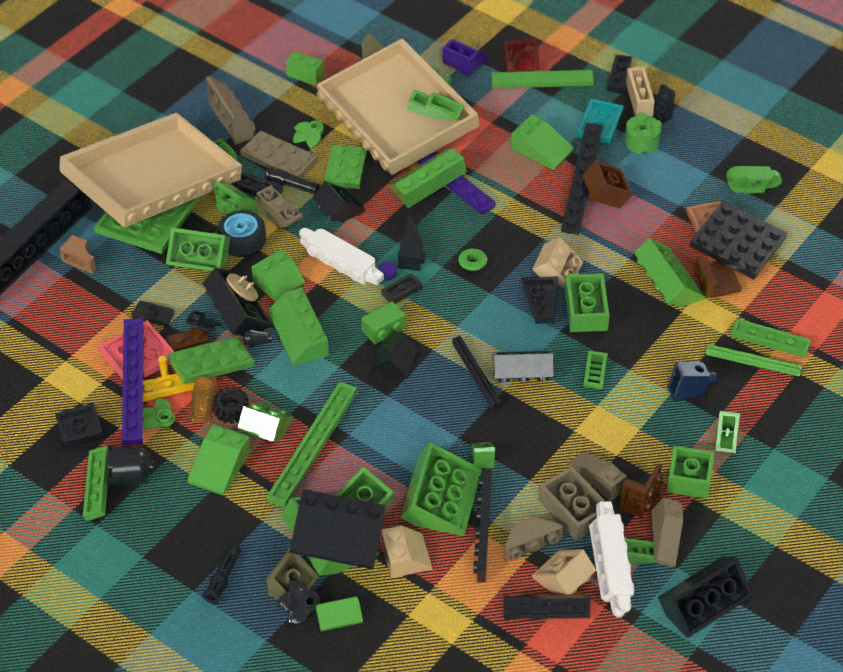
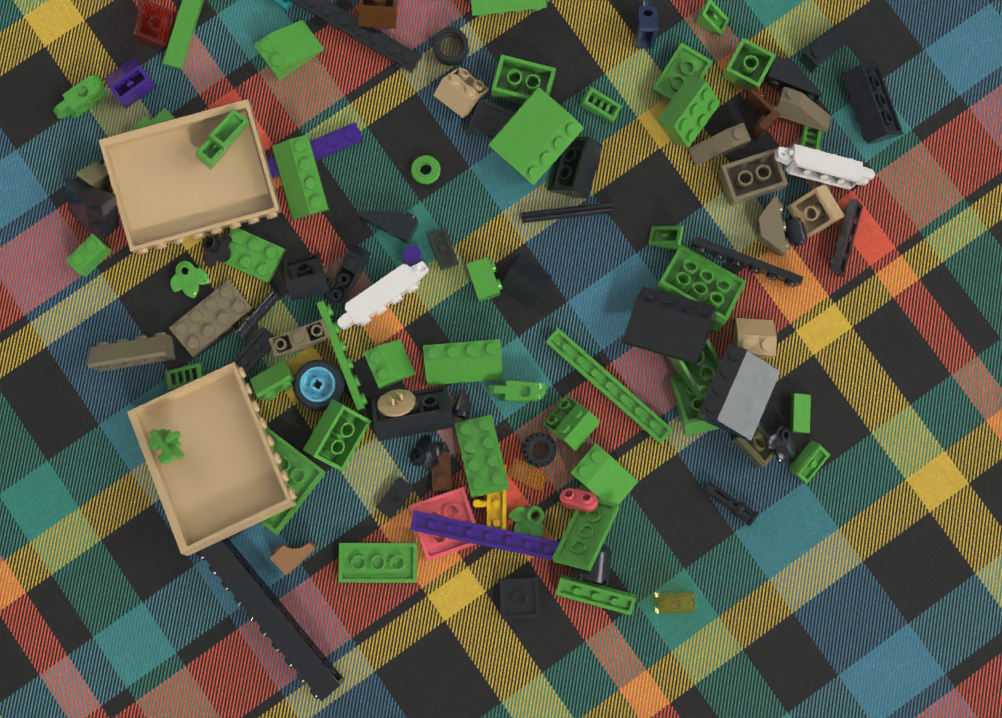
camera: 75 degrees left, 35 degrees up
(88, 314) = (378, 562): none -> bright green plate
(104, 549) = (674, 602): none -> clear yellow slope
(153, 133) = (168, 443): none -> bright green hips
(155, 445) = (585, 536): none -> bright green plate
(189, 443) = (576, 500): none -> coral plate
(272, 243) = (345, 363): none -> bright green plate
(283, 375) = (519, 391): none -> bright green piece
(288, 638) = (809, 461): none -> bright green slope
(341, 140) = (216, 249): none -> black plate
(343, 54) = (92, 207): none -> black slope
(356, 229) = (348, 274): none -> black slope
(389, 461) = (670, 325): none -> black slope
(437, 31) = (81, 97): none -> bright green piece
(533, 559) = (796, 232): none -> black brick
(535, 318) = (535, 136): none -> bright green slope
(593, 257) = (450, 32): none -> black tyre
(616, 429) = (688, 111): none -> bright green brick
(655, 425) = (682, 64): none -> bright green plate
(698, 513) = (787, 74): none -> black slope
(745, 537) = (825, 47): none -> black slope

